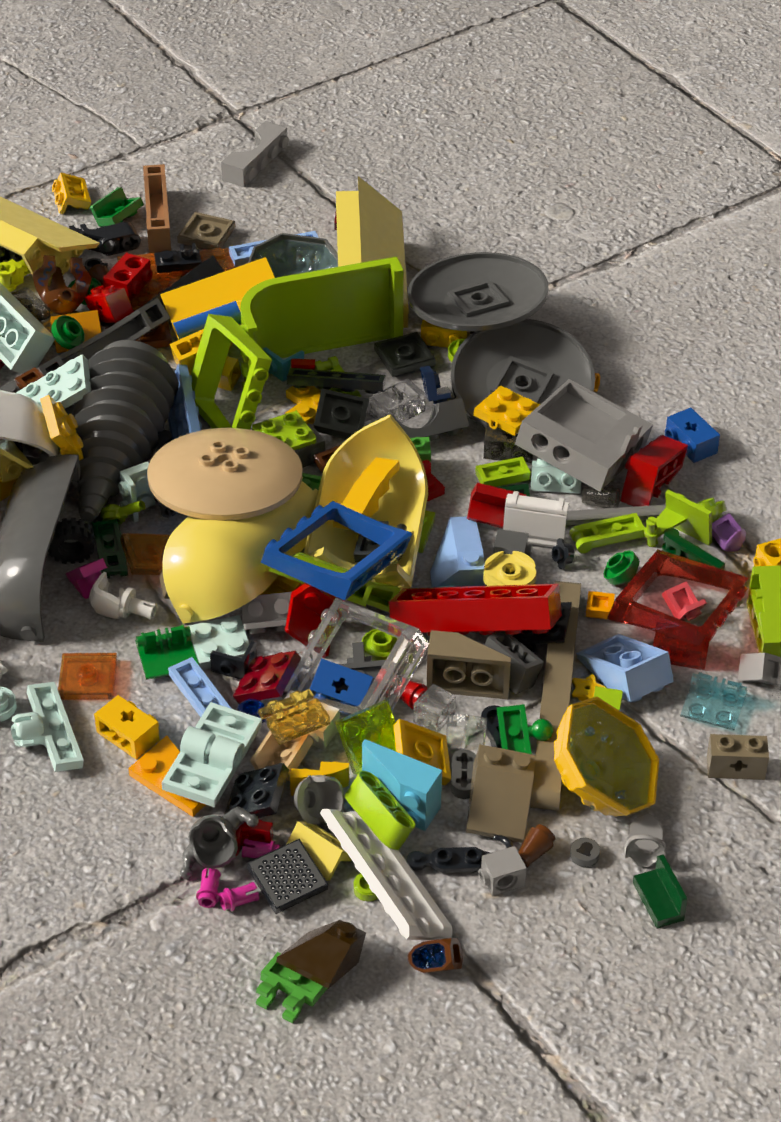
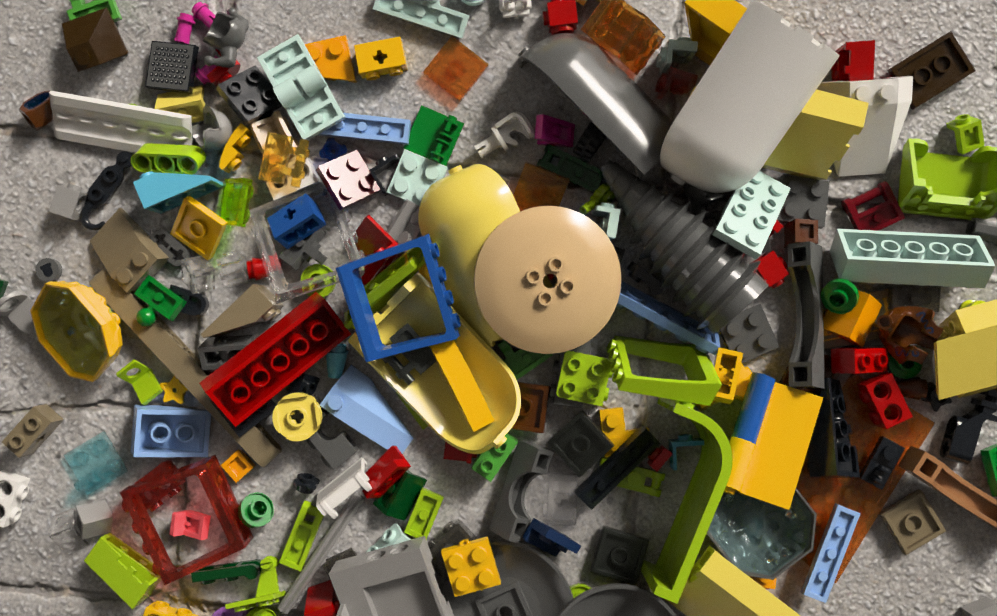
camera: 135 degrees right, 45 degrees up
(62, 427) = (680, 177): yellow plate -> none
(537, 843) = (74, 240): reddish brown cone -> none

